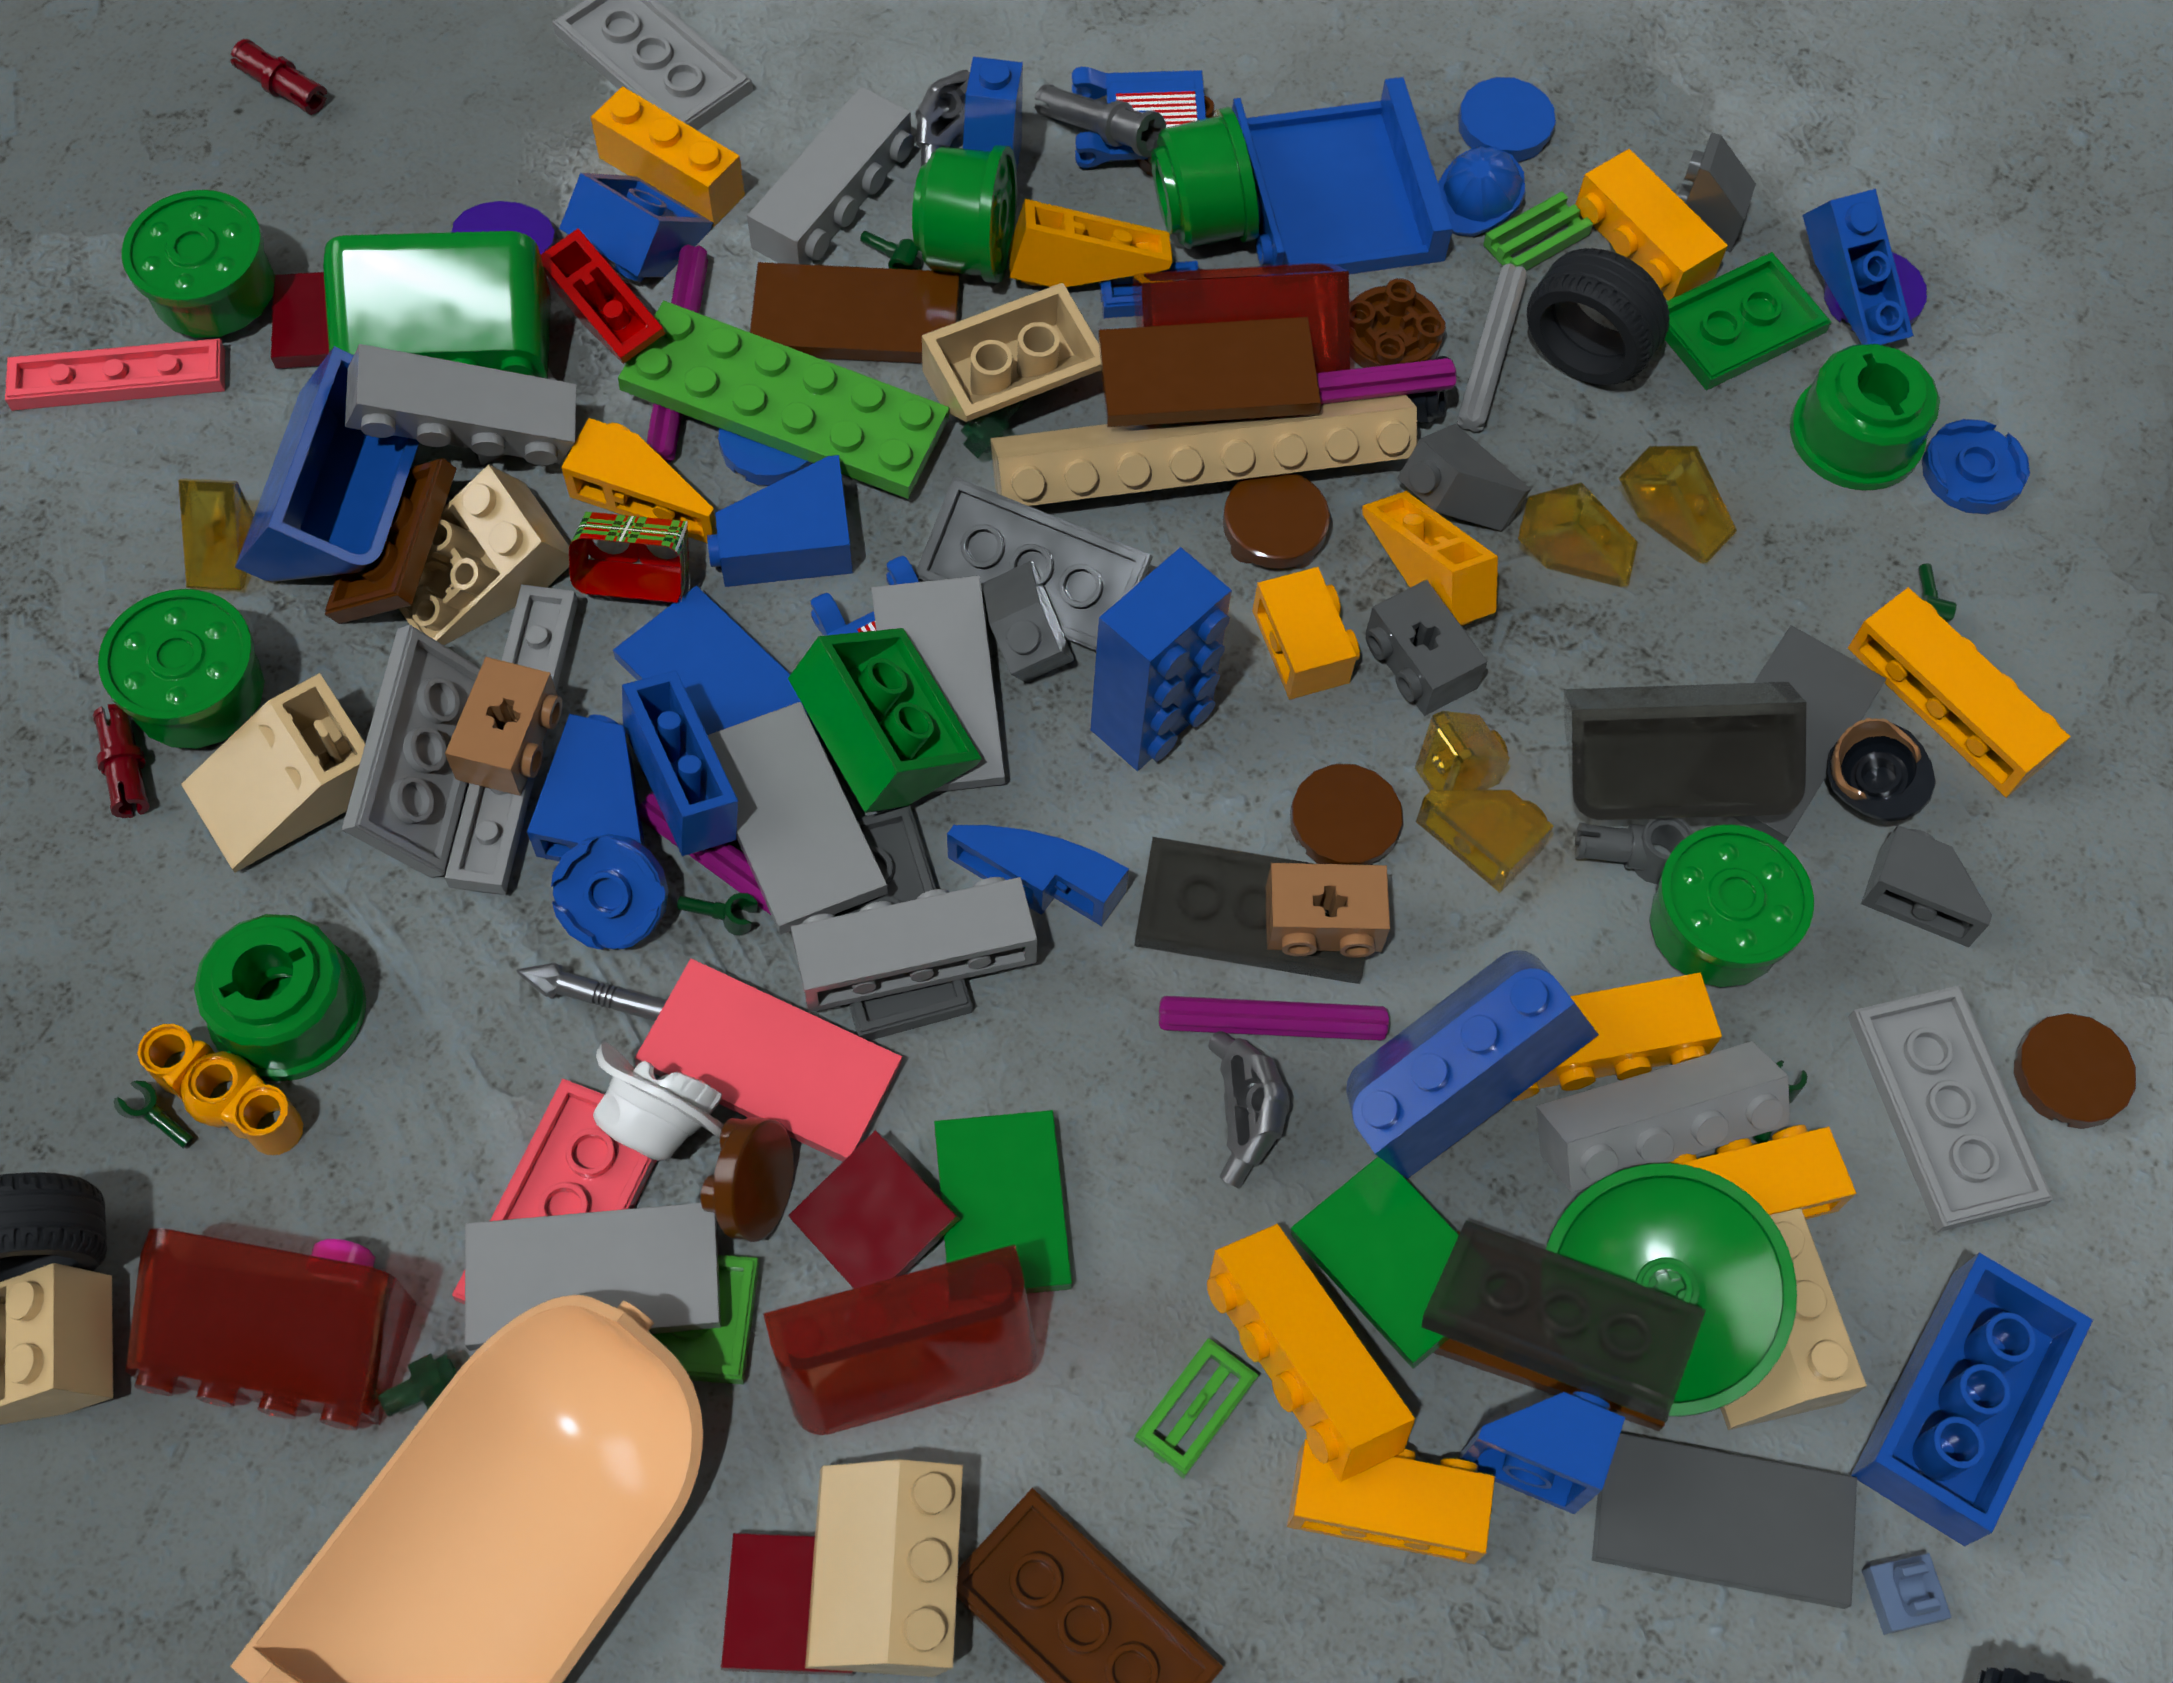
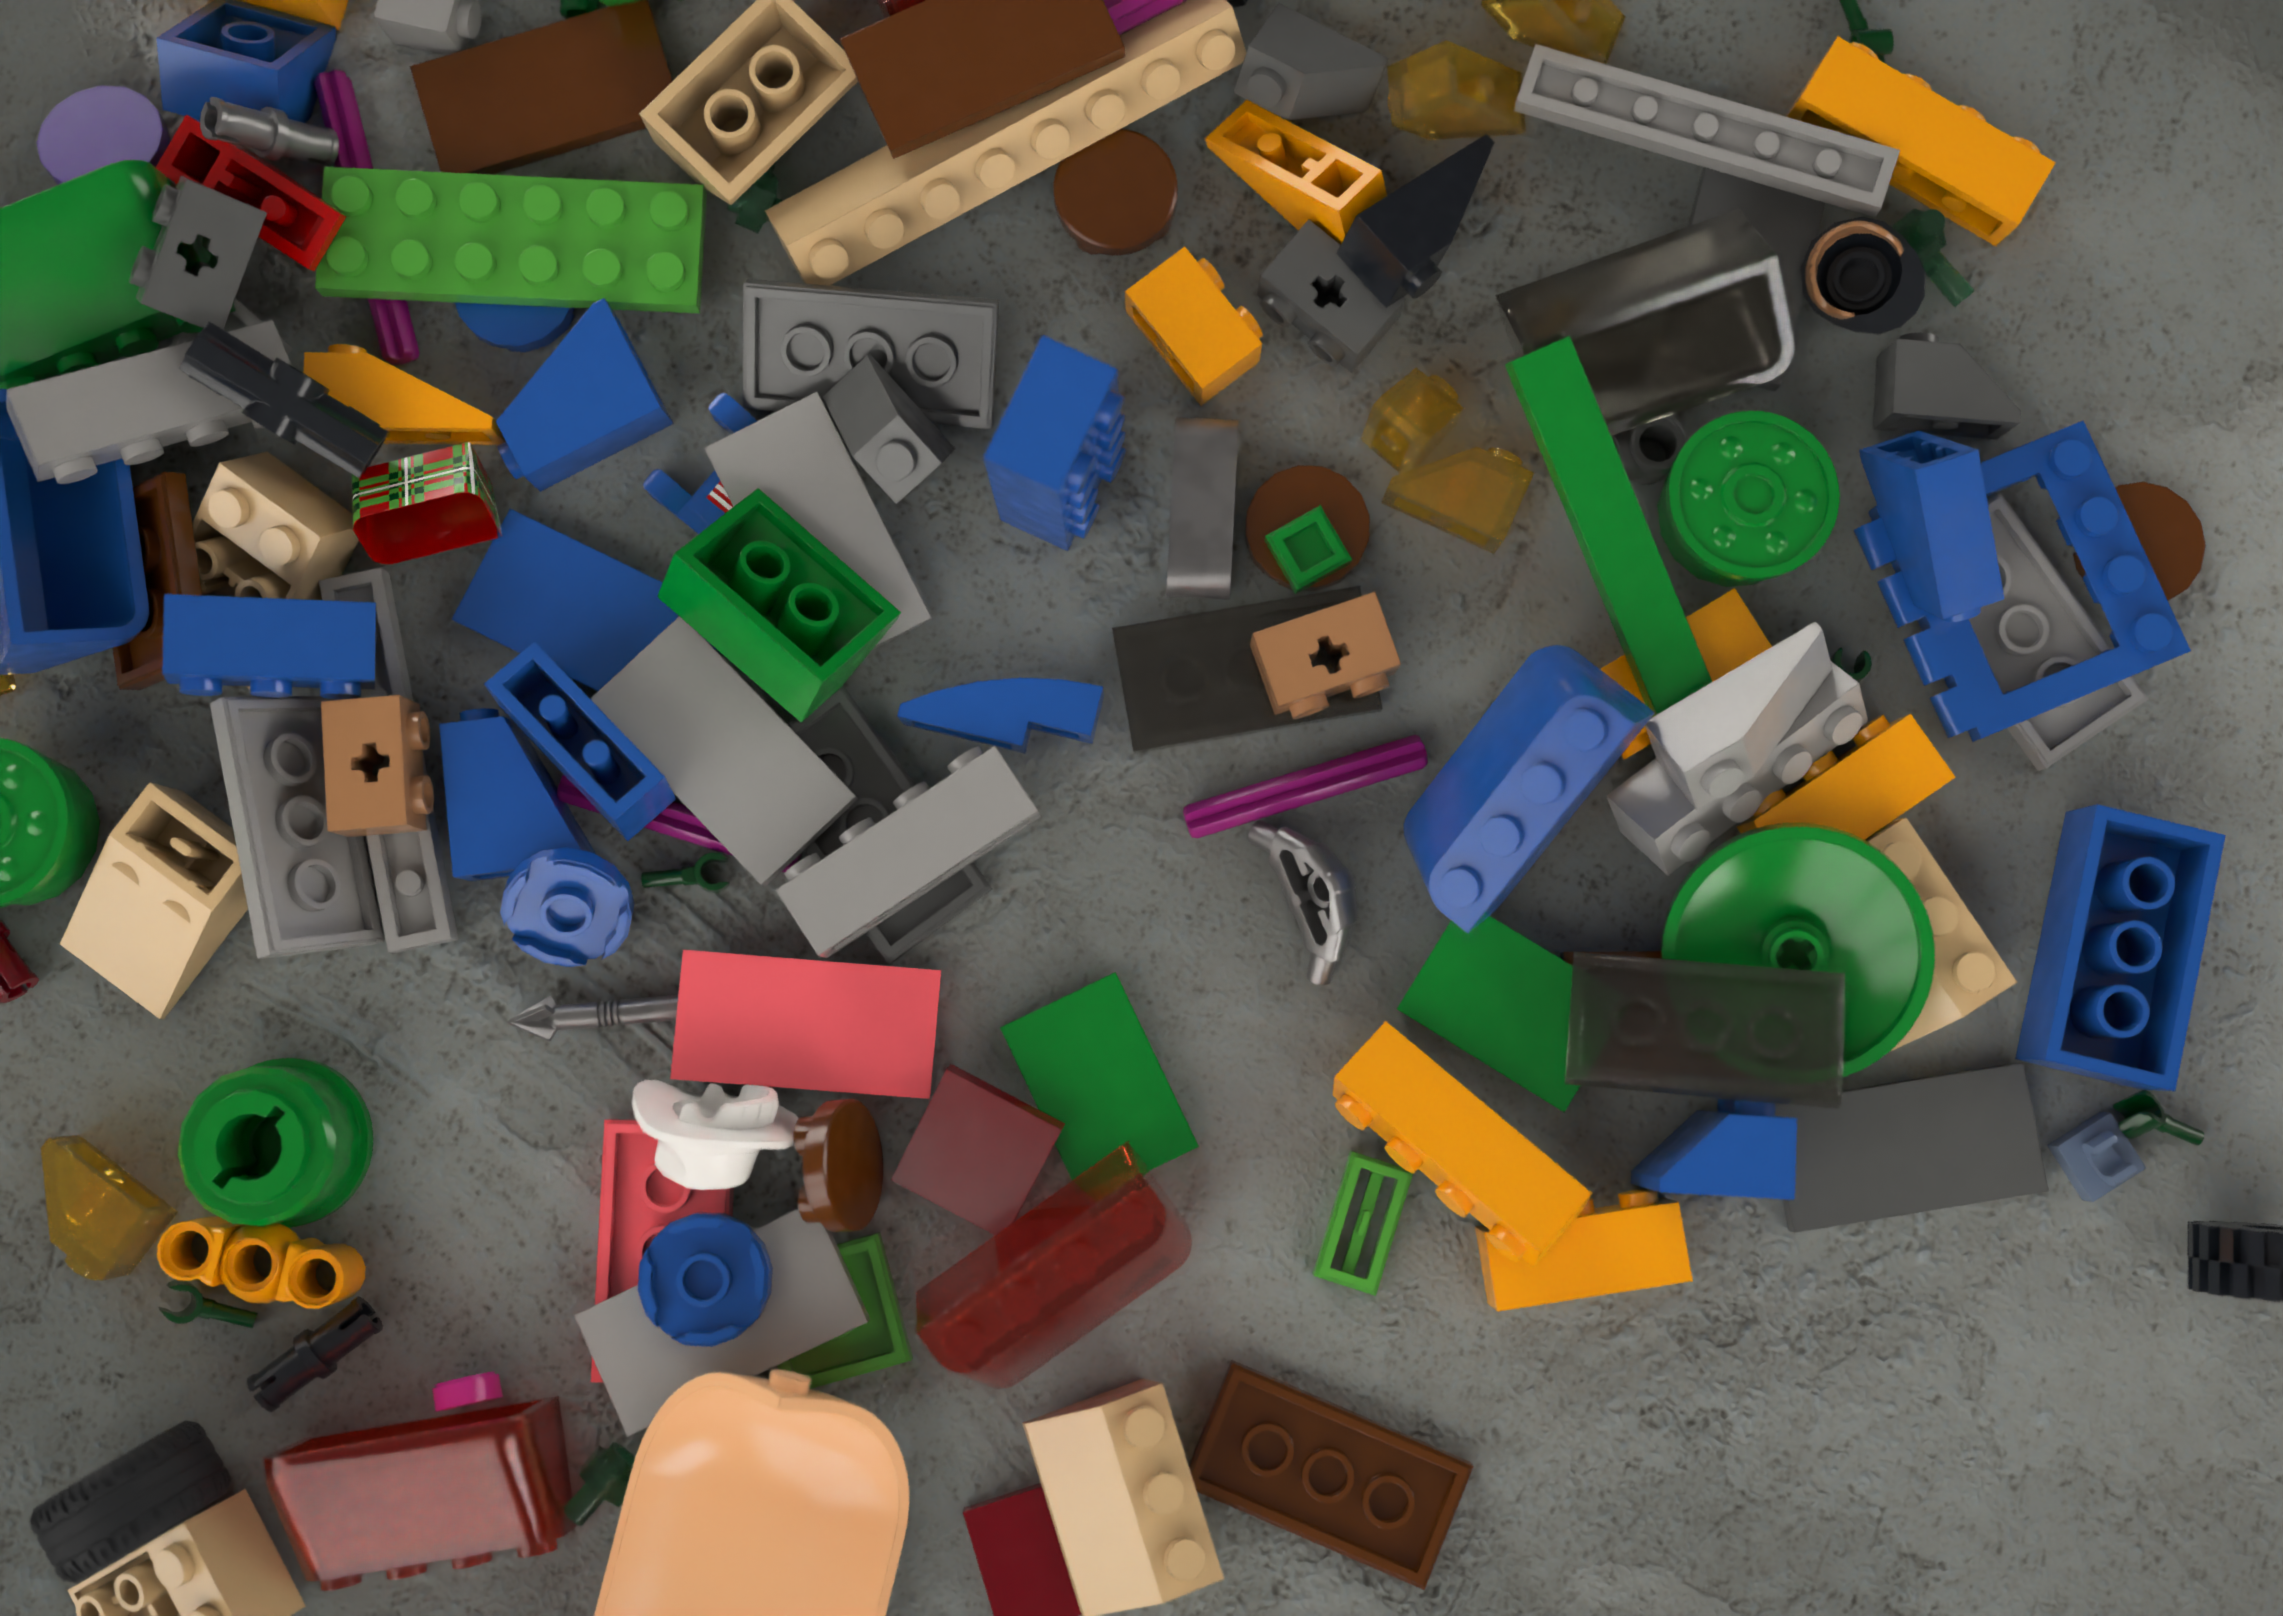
camera: 15 degrees left, 20 degrees up
(104, 1000) = (98, 1210): none -> clear yellow slope
(226, 1184) = (314, 1354): none -> black pin
(464, 601) = (269, 645): none -> blue brick
(561, 435) = (283, 399): none -> black piece
(574, 304) = (209, 288): none -> dark grey brick
(593, 1230) = (705, 1279): none -> blue tile
(633, 262) = (268, 133): none -> flat silver pin
(1262, 770) = (1202, 508): none -> flat silver beam
(1340, 828) = (1307, 549): none -> green tile
(1507, 610) = (1407, 233): none -> black slope
(1605, 884) = (1609, 524): none -> green tile
(1674, 1066) = (1735, 723): none -> light grey slope
(1780, 623) = (1707, 130): none -> light grey plate
(1878, 1087) = (2115, 576): none -> blue hinge
(1893, 974) = (1937, 522): none -> blue slope
(1947, 767) = (1927, 238): none -> clear green piece
(1960, 1565) = (2145, 1113): none -> dark green hand

